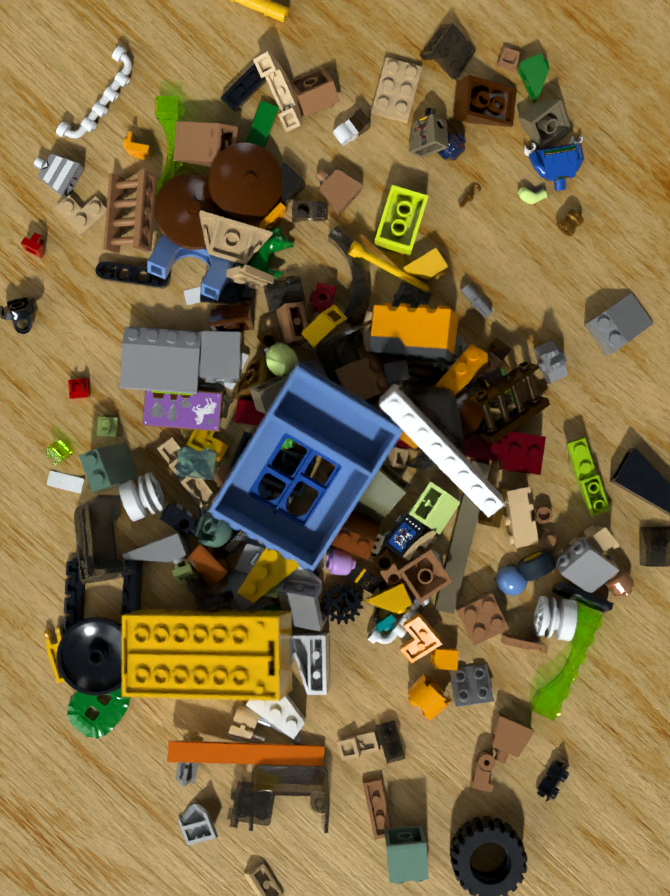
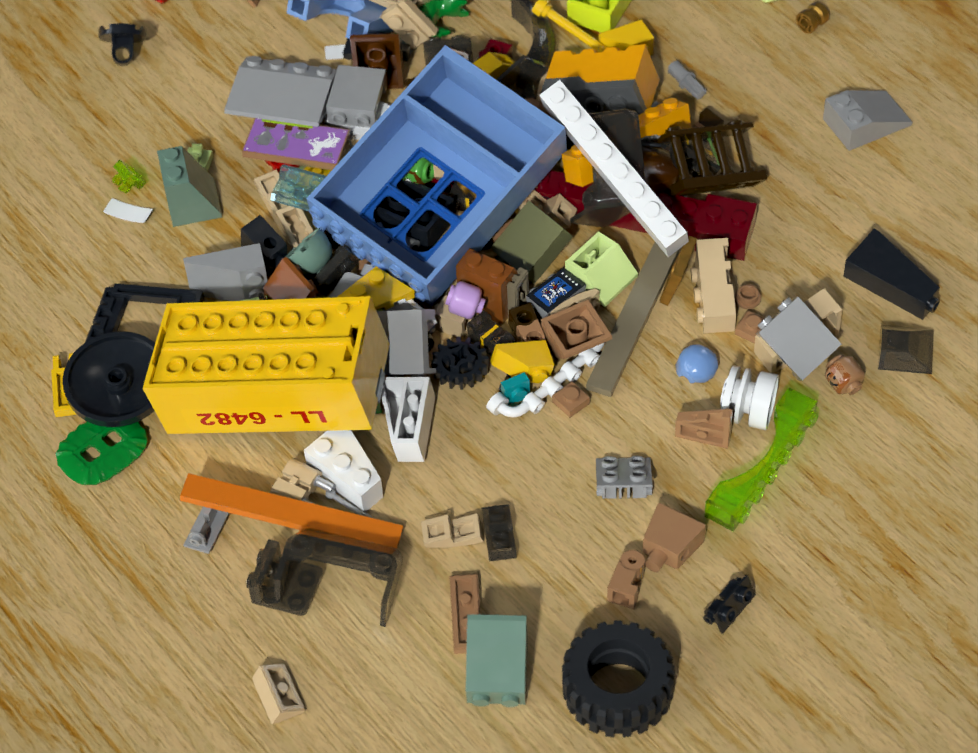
camera: 10 degrees right, 35 degrees down
(79, 388) = (172, 121): red tile -> none
(97, 540) = (151, 258): clear smoke windscreen -> none
(132, 277) = (293, 30): black beam -> none
(138, 498) = (222, 219): white wheel -> none
(197, 825) = (201, 602): light grey slope -> none
(423, 639) = (565, 410): light orange plate -> none
(428, 696) = (560, 470): light orange brick -> none
(444, 658) = (590, 437): light orange brick -> none
(481, 618) = (648, 395): medium nougat brick -> none
(536, 565) = (731, 340): black wheel -> none
(551, 361) = (774, 137): light grey hinge -> none
(582, 597) = (802, 385): black tile -> none
(586, 476) = (807, 254): lime slope -> none

